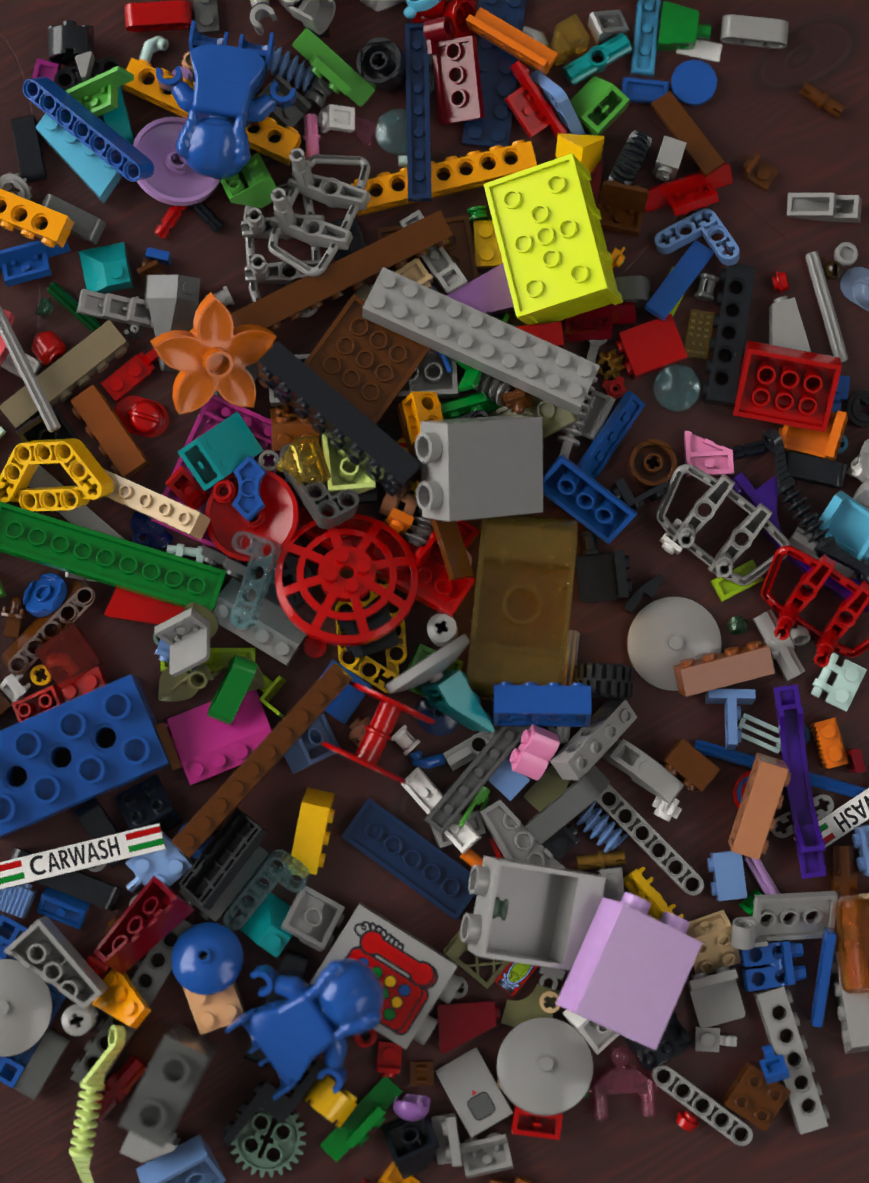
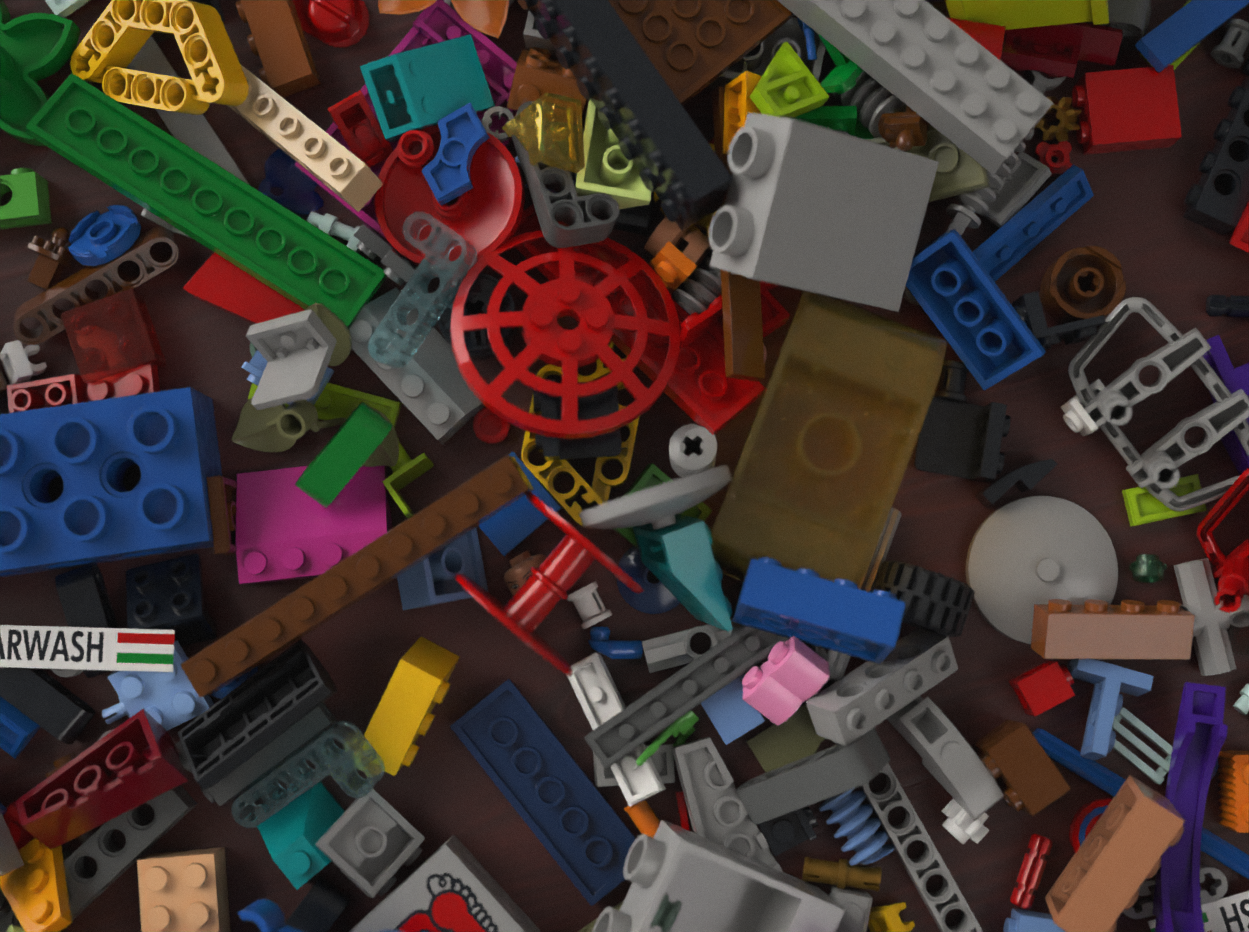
camera: 20 degrees right, 0 degrees up
(34, 677) = (56, 358): yellow bush -> none
(220, 966) = (210, 869): blue dish -> none
(439, 394) = (787, 86): none -> lime wing
(676, 387) = (1148, 182): clear light blue dish -> none
(692, 714) = (1043, 687): none -> red brick
(699, 334) = (1204, 110): clear yellow tile -> none
(707, 455) = (1171, 295): bright pink wing -> none
(715, 827) = (1031, 871): none -> red axle

